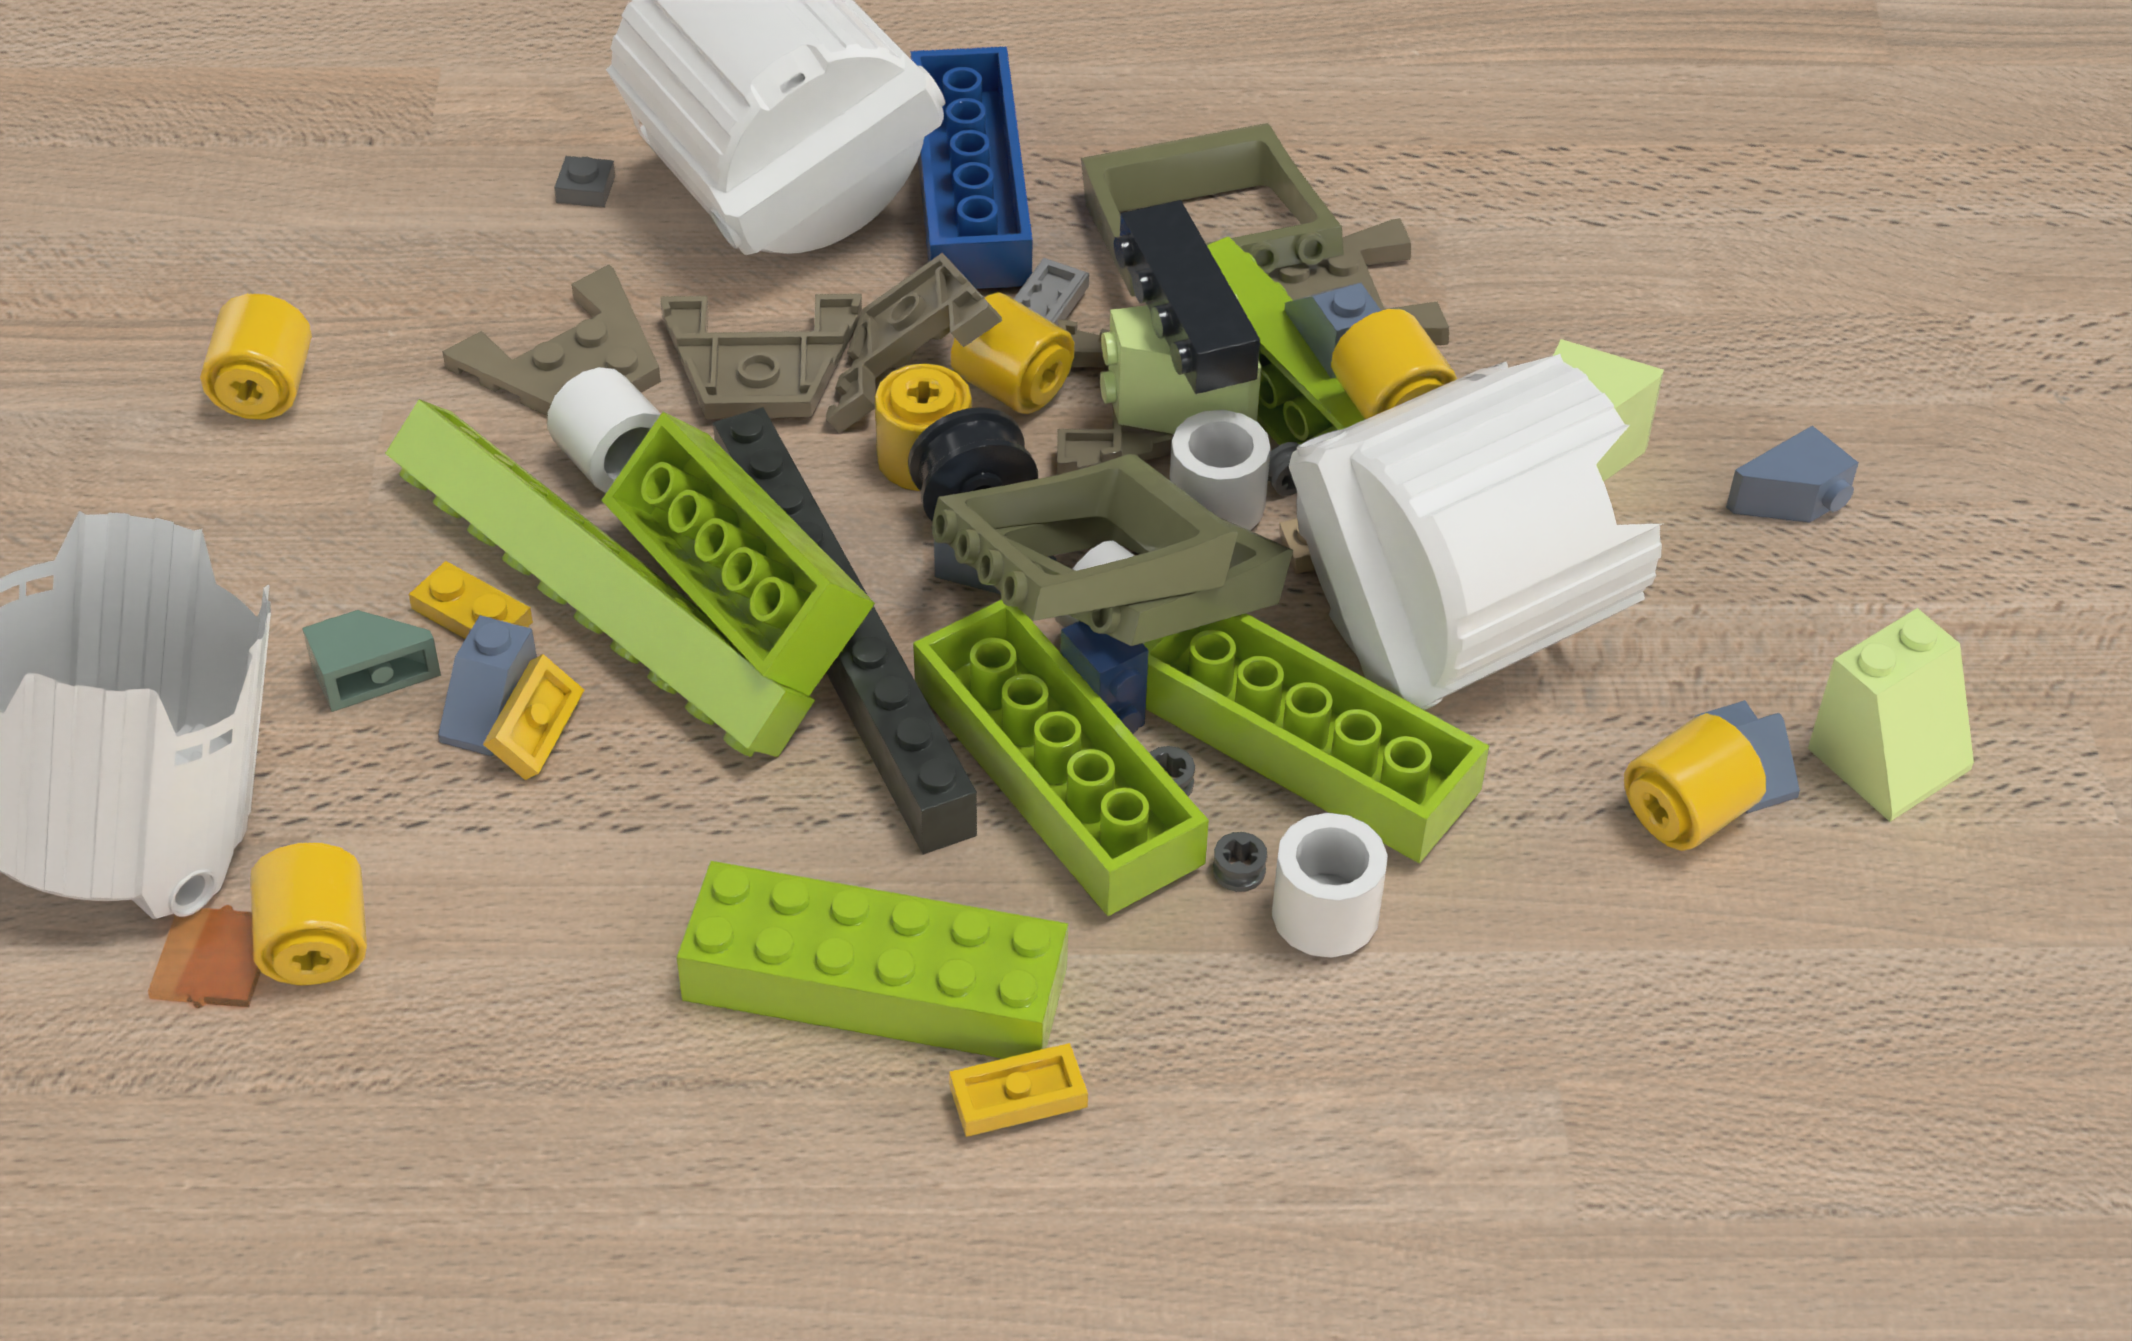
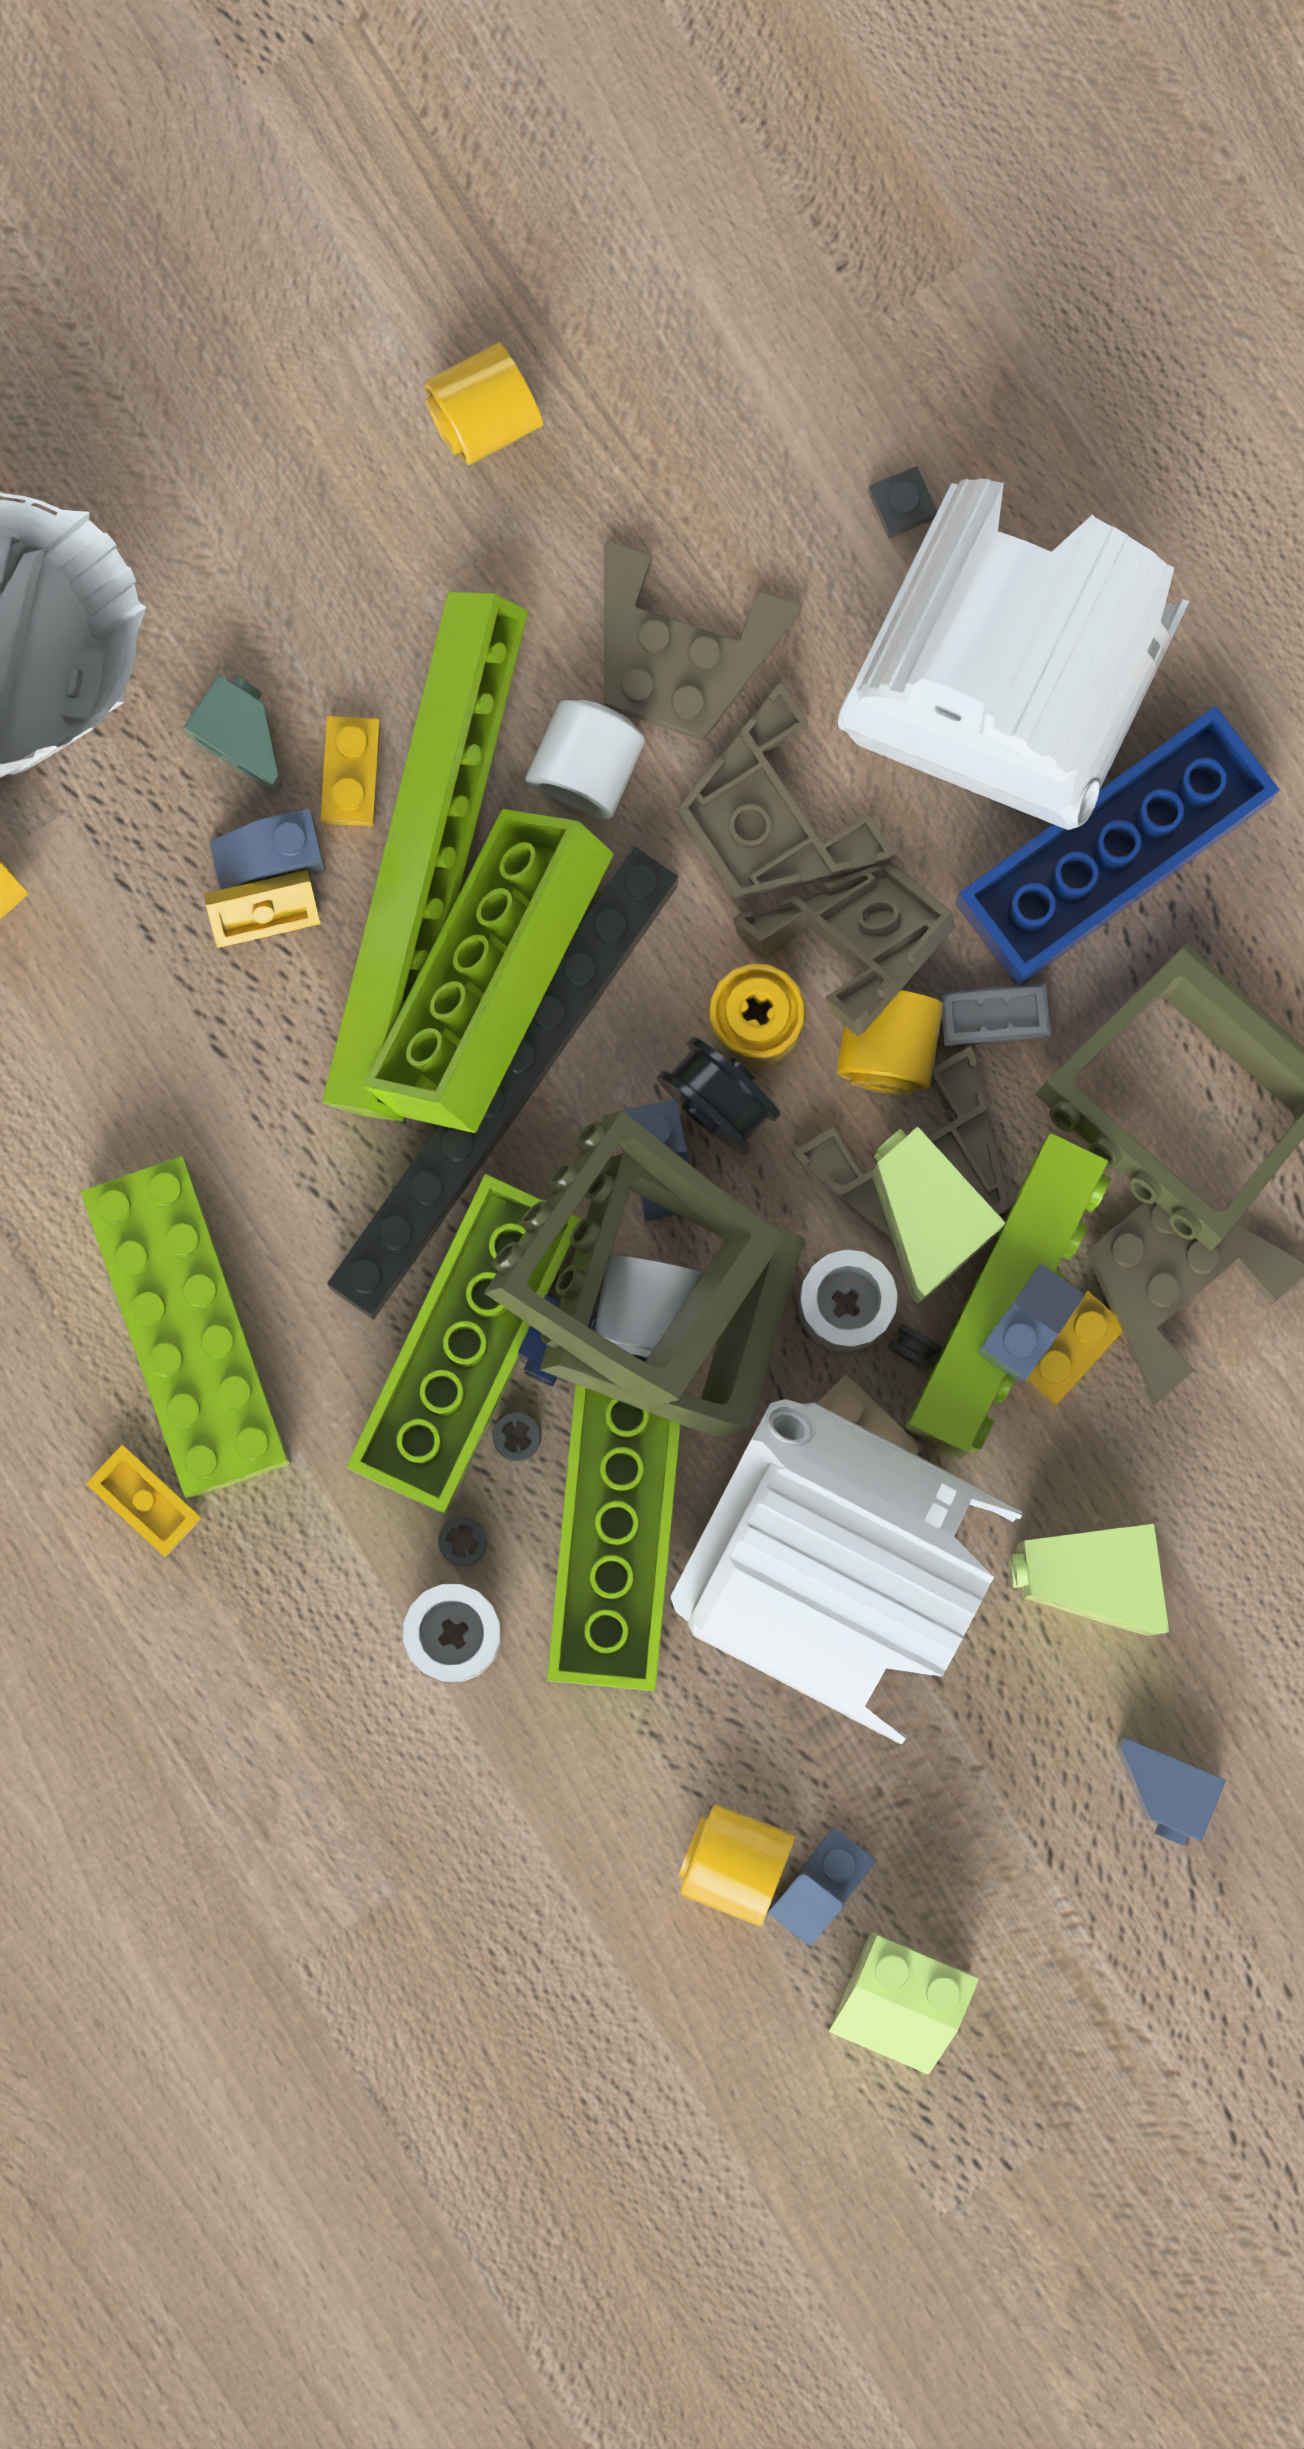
camera: 55 degrees right, 35 degrees up
(1187, 297) = (952, 1191): black brick -> none
(1388, 362) = (970, 1421): yellow piece -> none

